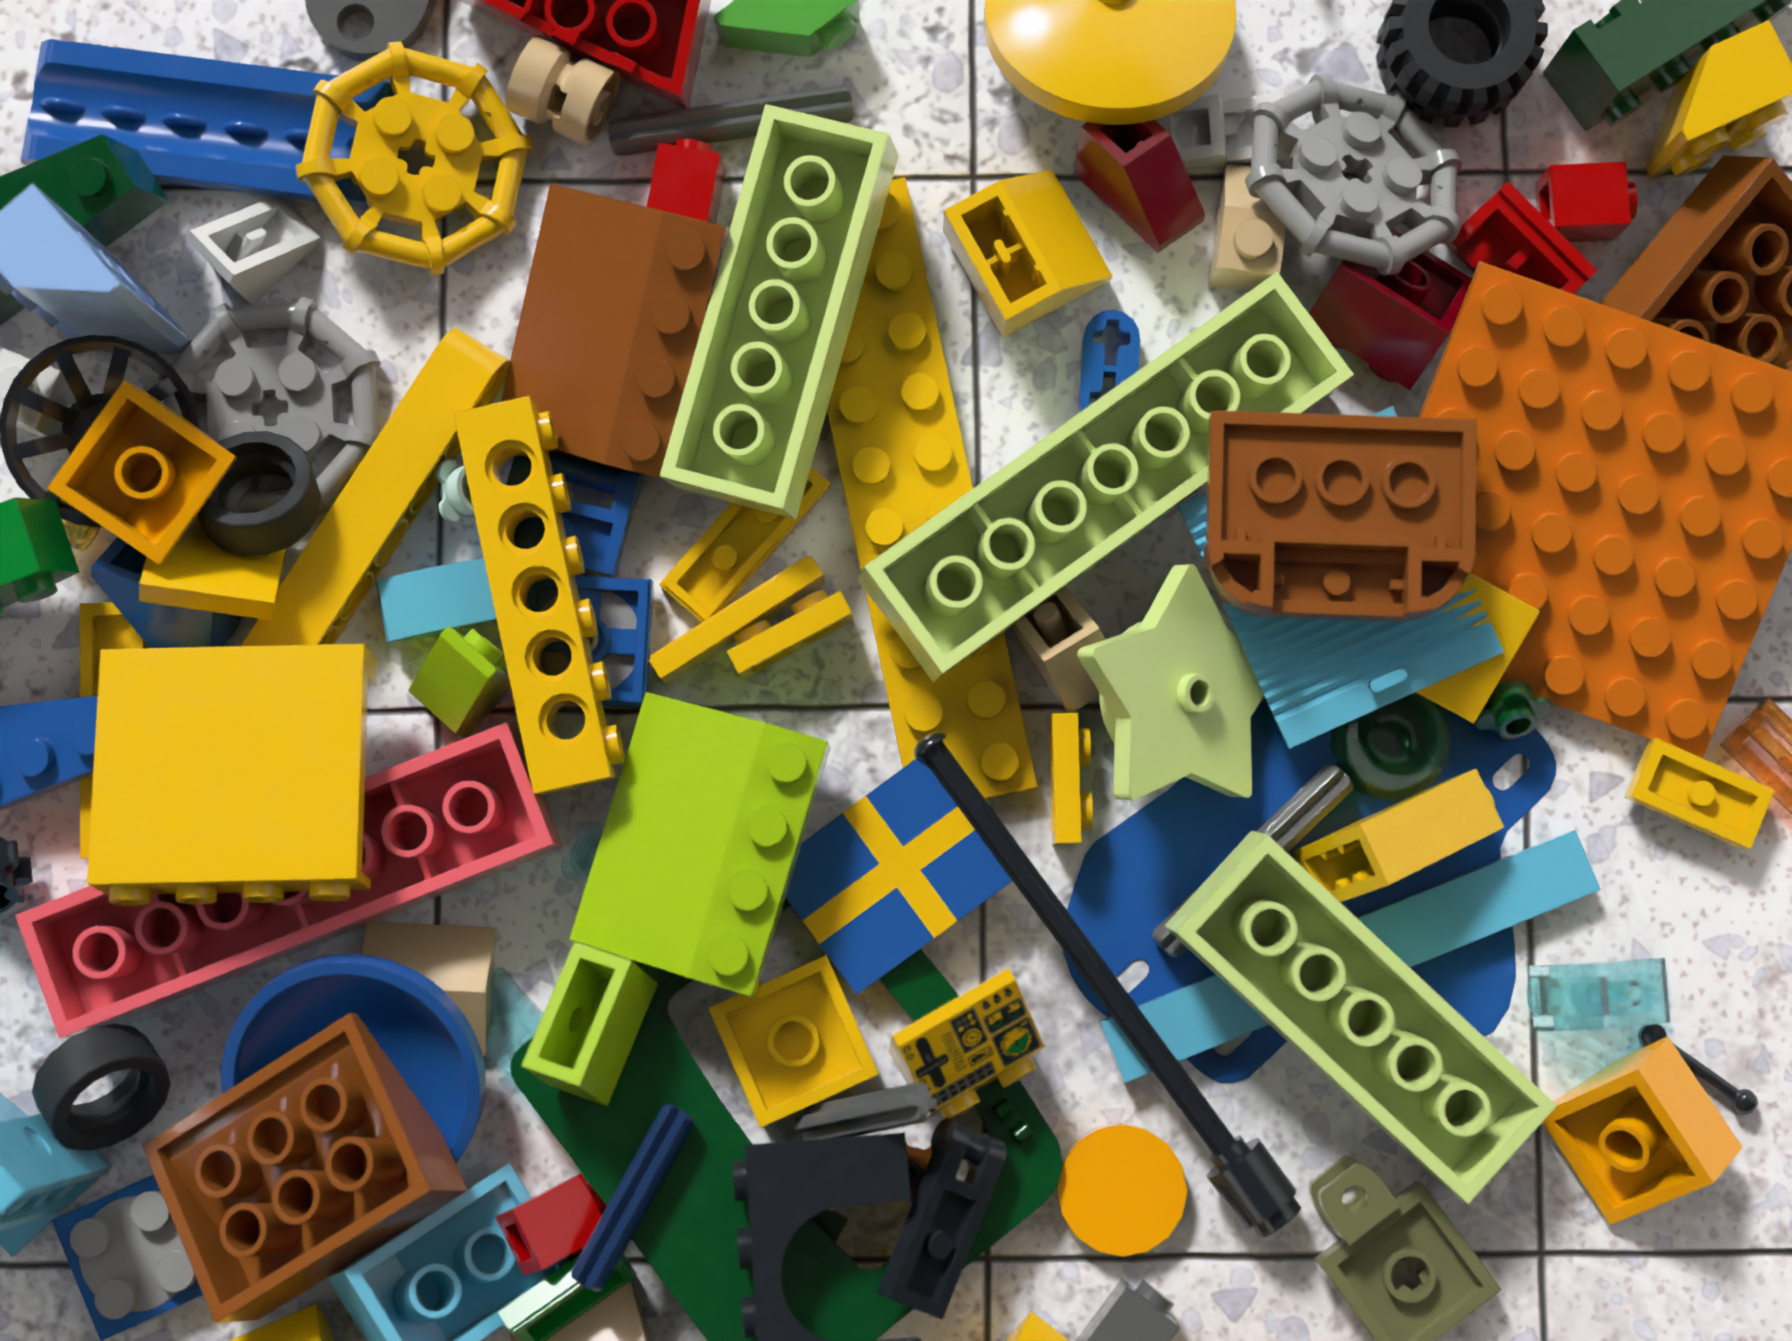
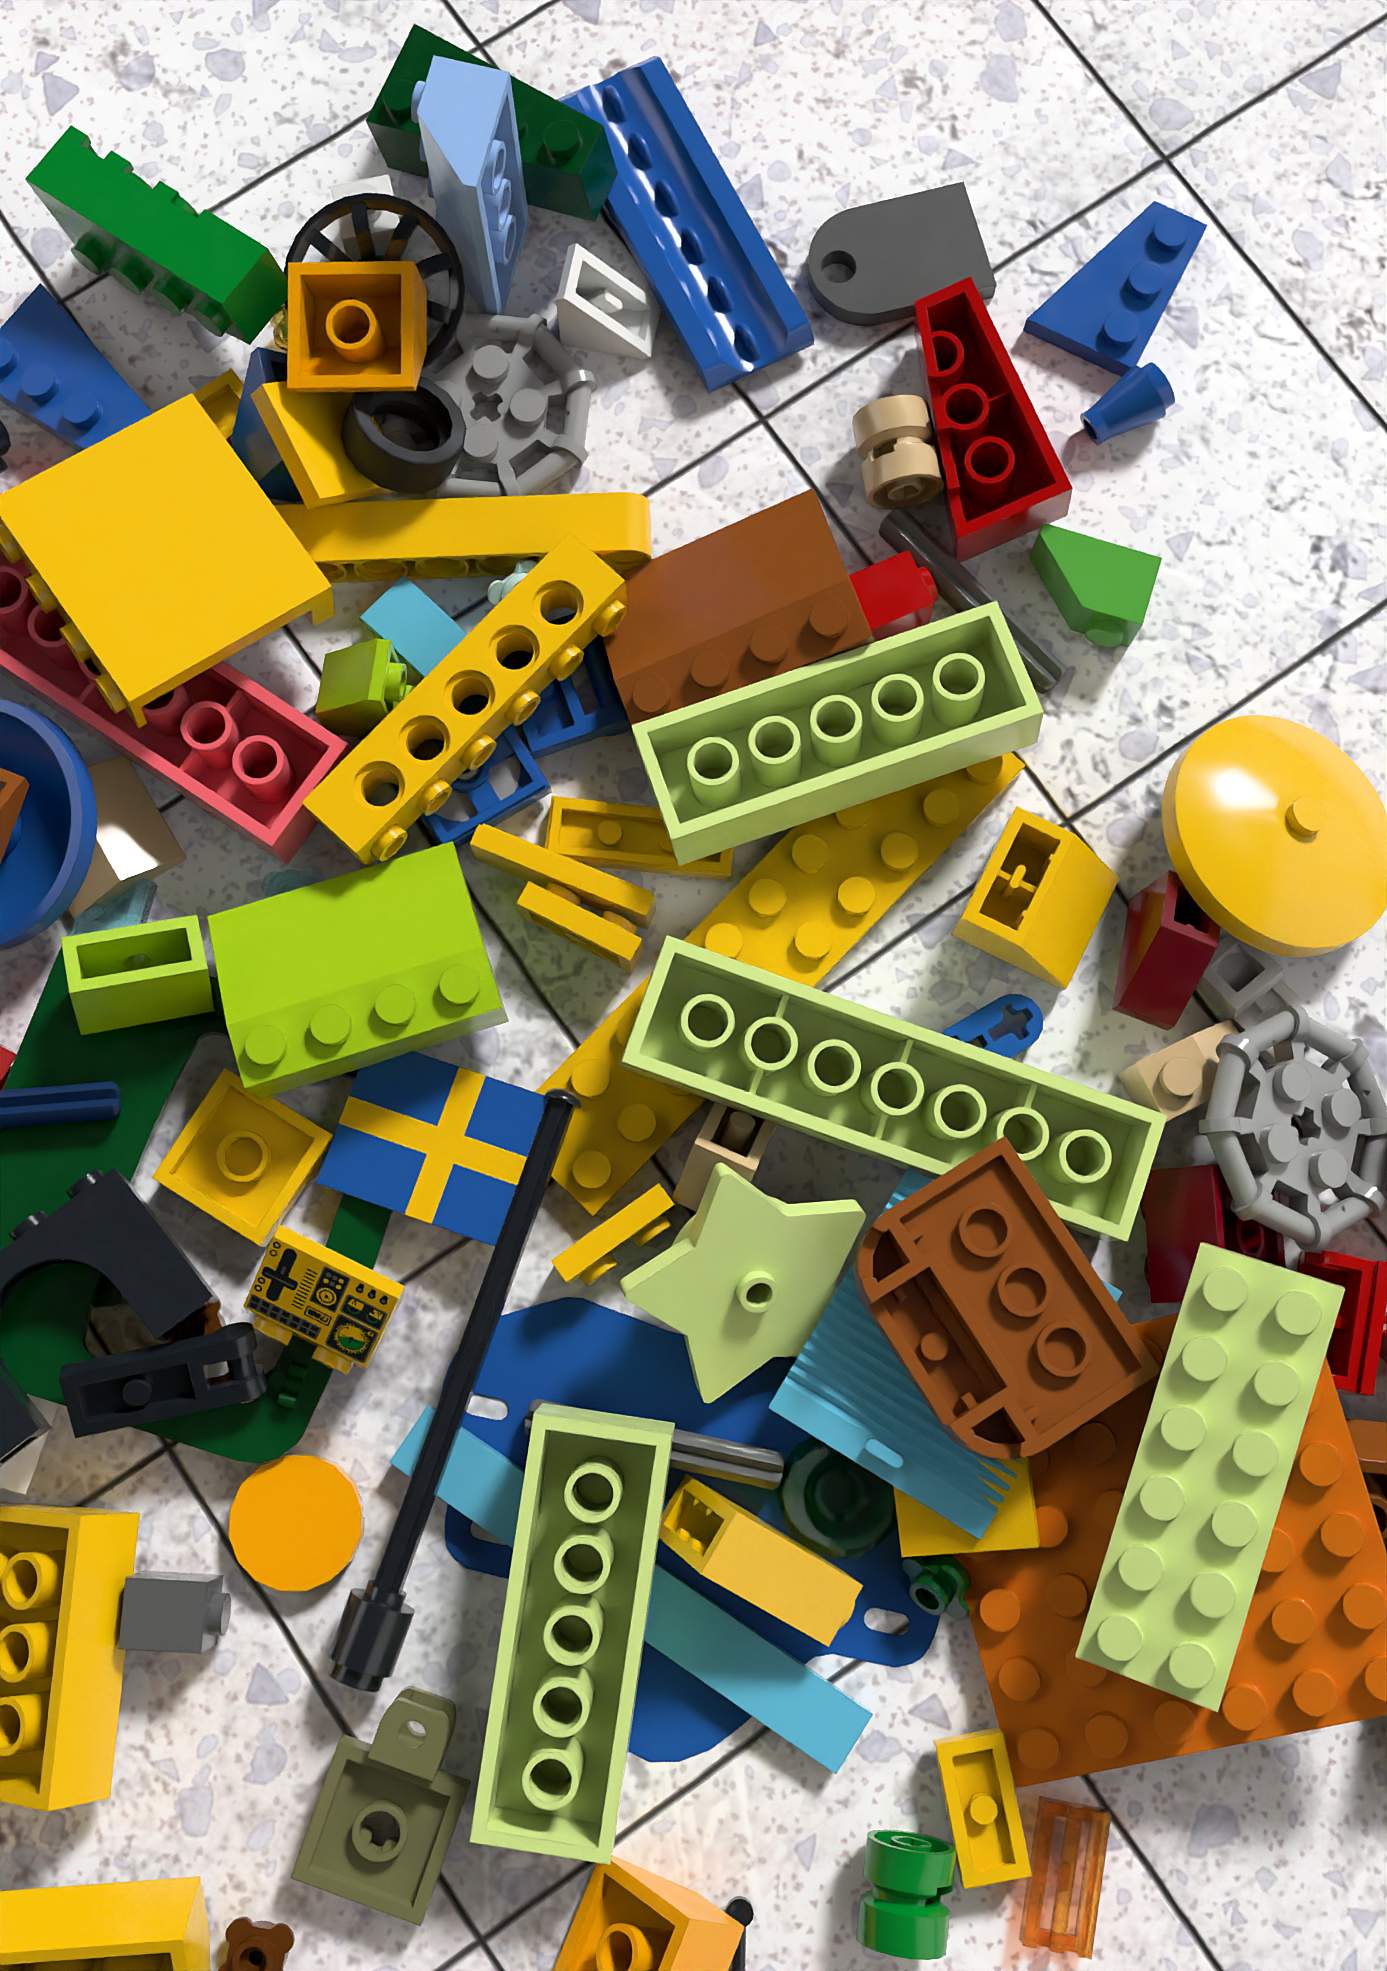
camera: 50 degrees right, 5 degrees down
(383, 178) = (775, 346): yellow plate -> none
(867, 1113) = (212, 1255): dark grey axle -> none
(1576, 436) = (1210, 1474): none -> yellowish green brick
(1598, 994) = (741, 1837): clear light blue slope -> none
(1732, 902) = (905, 1906): none -> green wheel

